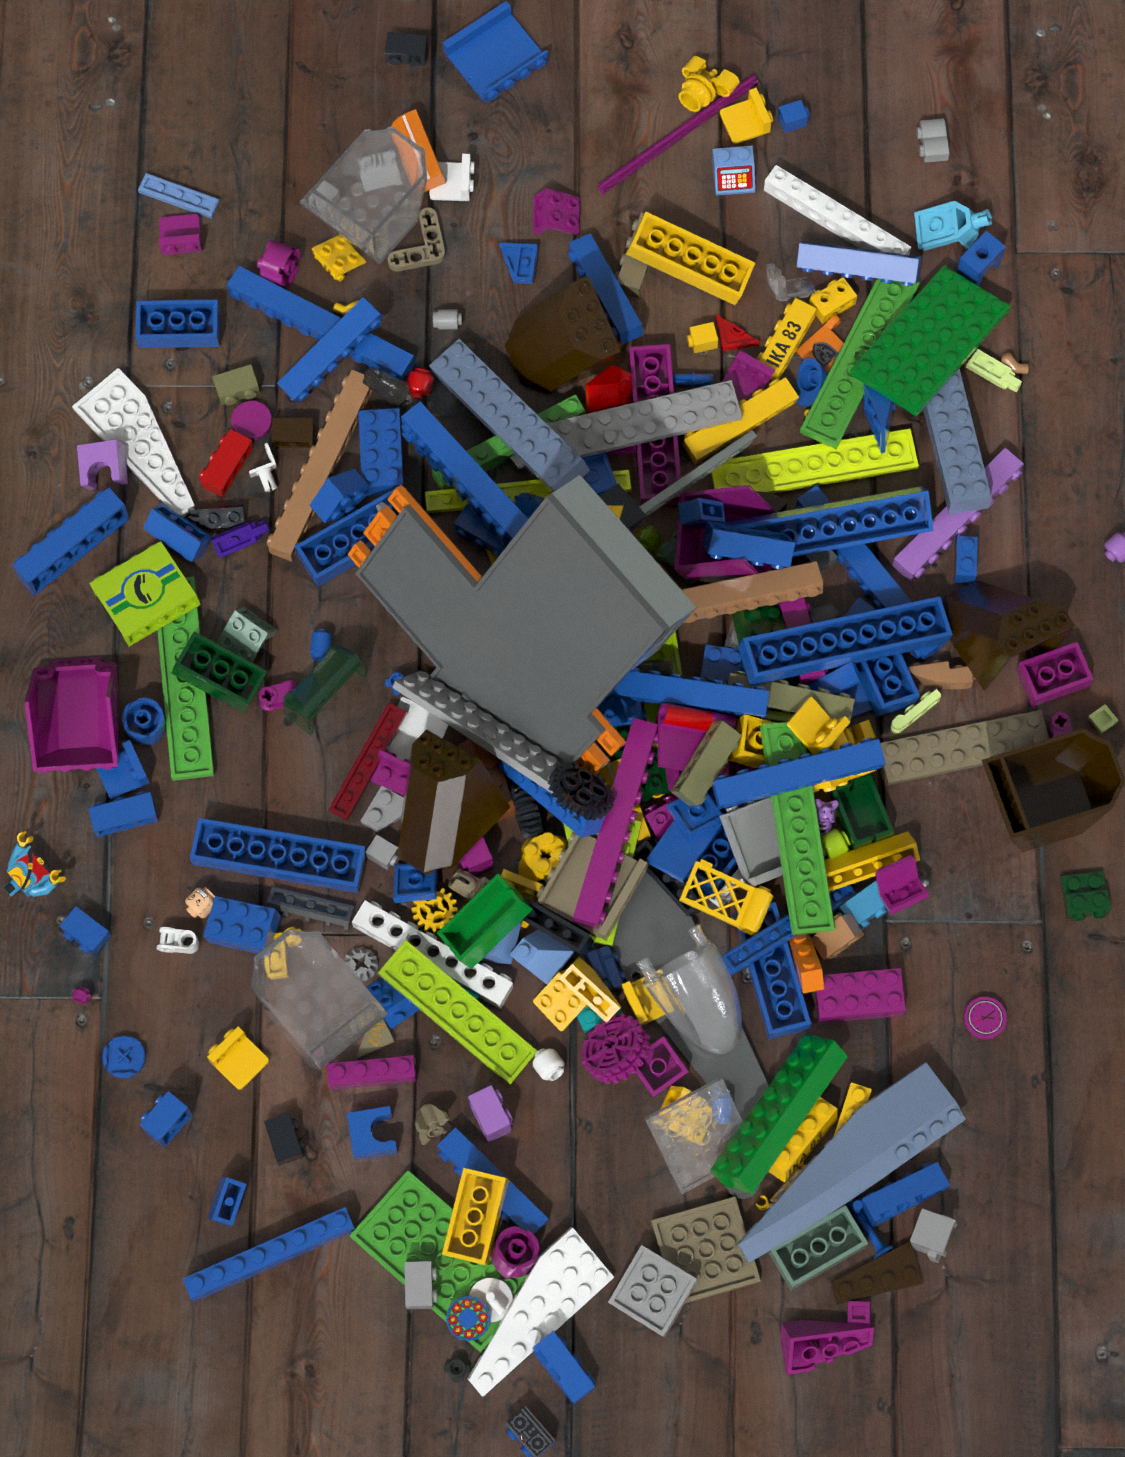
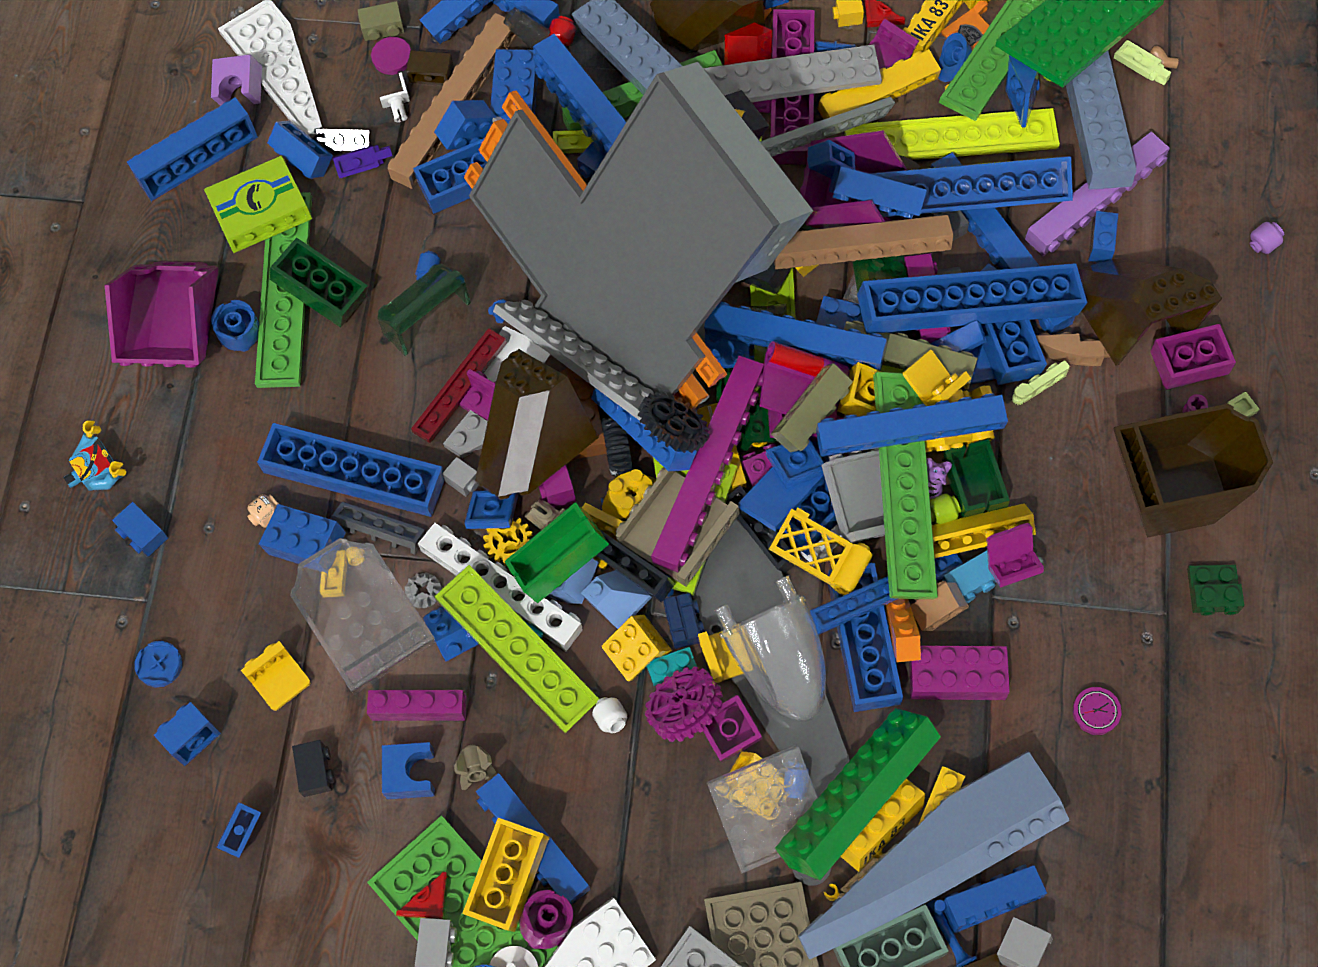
camera: 10 degrees right, 5 degrees down
(81, 995) = (124, 595): magenta plate -> none
(123, 814) = (200, 415): blue brick -> none
(125, 777) = (209, 376): blue bracket -> none
(173, 941) = (230, 548): white piece -> none
(225, 463) = (359, 91): red brick -> none
(245, 634) = (353, 250): sand green bracket -> none
(268, 1255) = (274, 894): blue brick -> none
(276, 694) = (371, 312): magenta piece -> none
(375, 1039) = (427, 669): dark tan tile -> none
(407, 1247) = (428, 902): none -> red tile
(490, 1114) = (536, 756): medium lavender brick -> none
(590, 989) = (663, 636): yellow slope -> none
(960, 746) = (1079, 423): dark tan plate -> none

